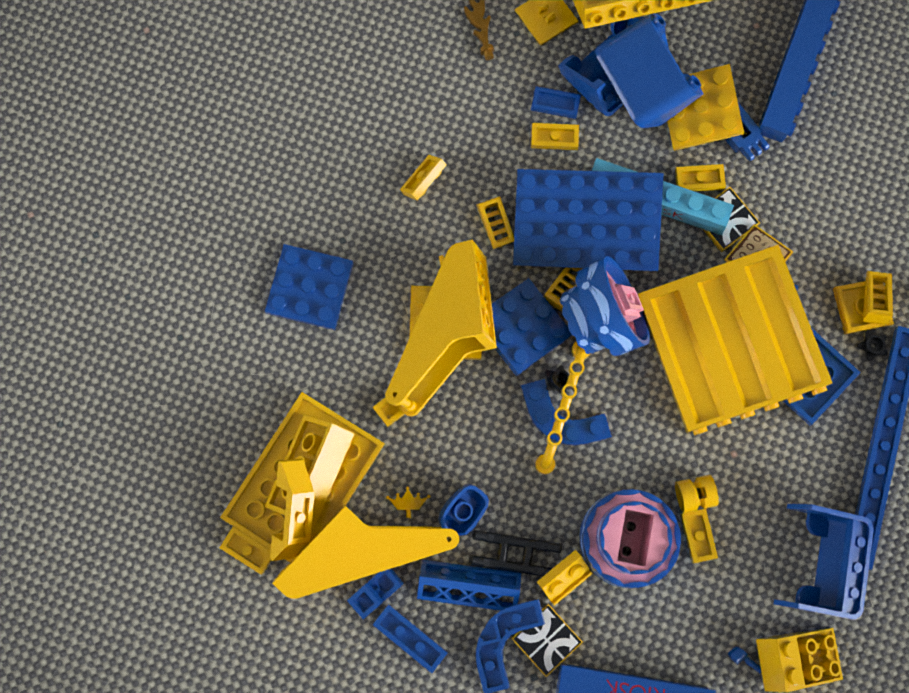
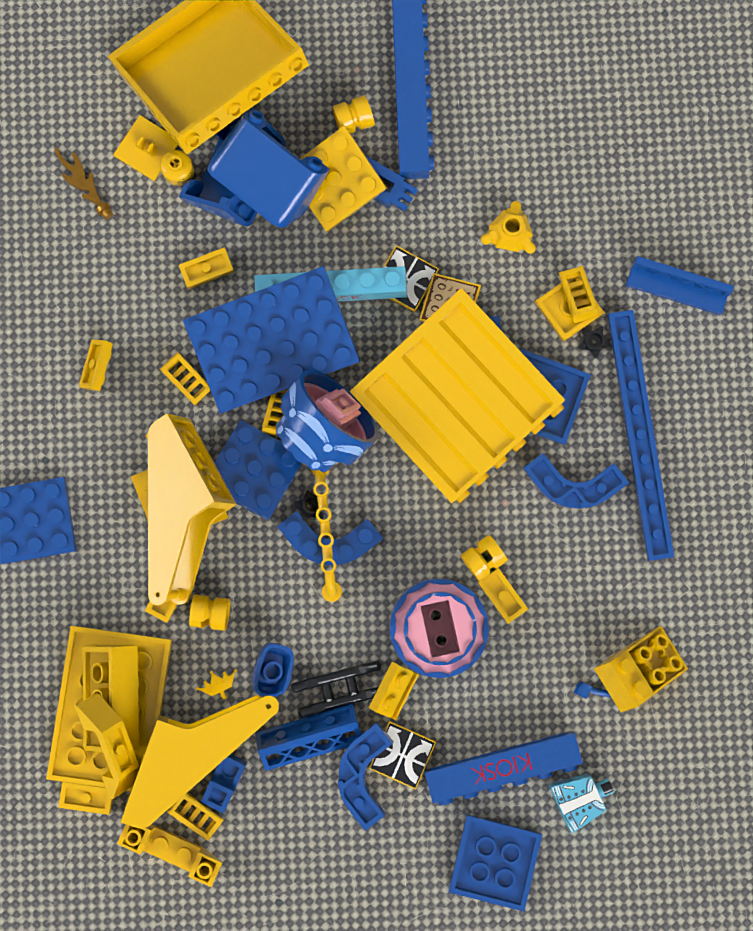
camera: 20 degrees left, 5 degrees up
(303, 632) = (172, 849): none -> yellow slope
(345, 629) = (188, 821): none -> yellow slope
(410, 638) = (274, 810): blue plate -> none
(429, 434) = (209, 612): none -> yellow wheel
(555, 102) = (193, 233): blue tile -> none
(566, 40) = (177, 167): none -> yellow head
(701, 177) = (364, 249): yellow plate -> none
(741, 61) = (354, 115): none -> yellow wheel
(798, 471) = (574, 494): none -> blue plate
(837, 217) = (510, 231): none -> yellow rock
(840, 564) = (643, 565): blue windscreen -> none

